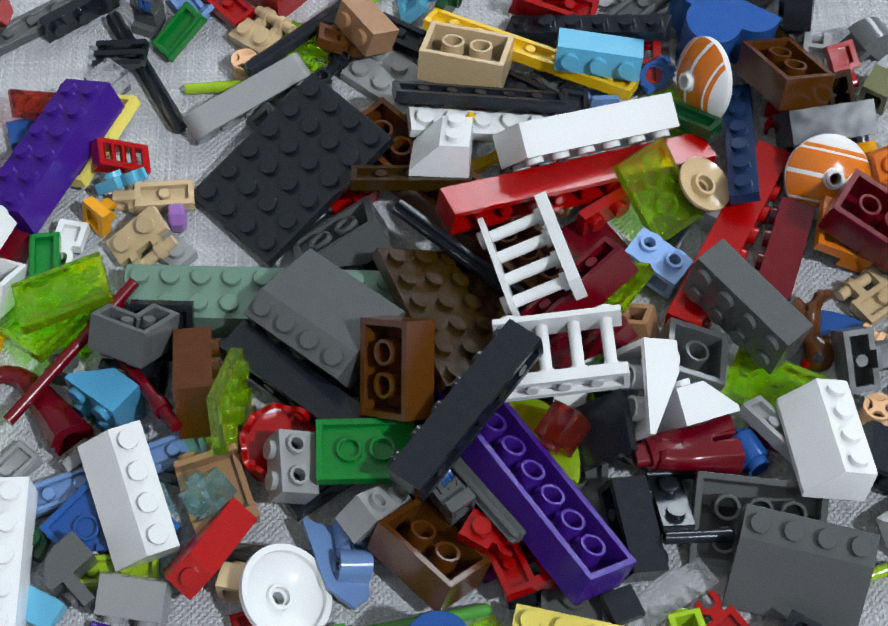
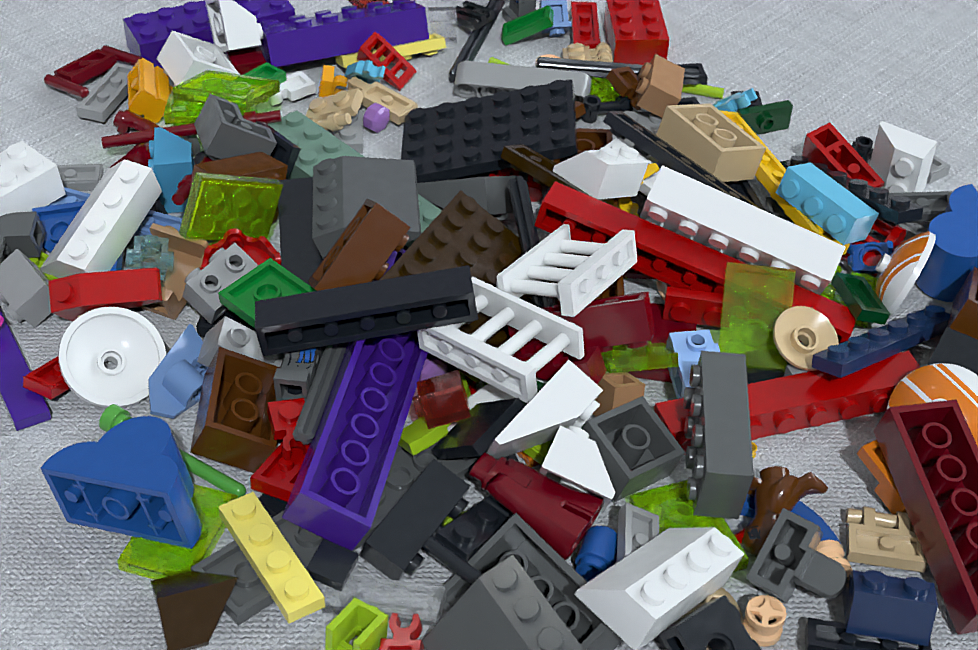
camera: 45 degrees right, 15 degrees down
(785, 244) = (823, 446): dark red brick -> none

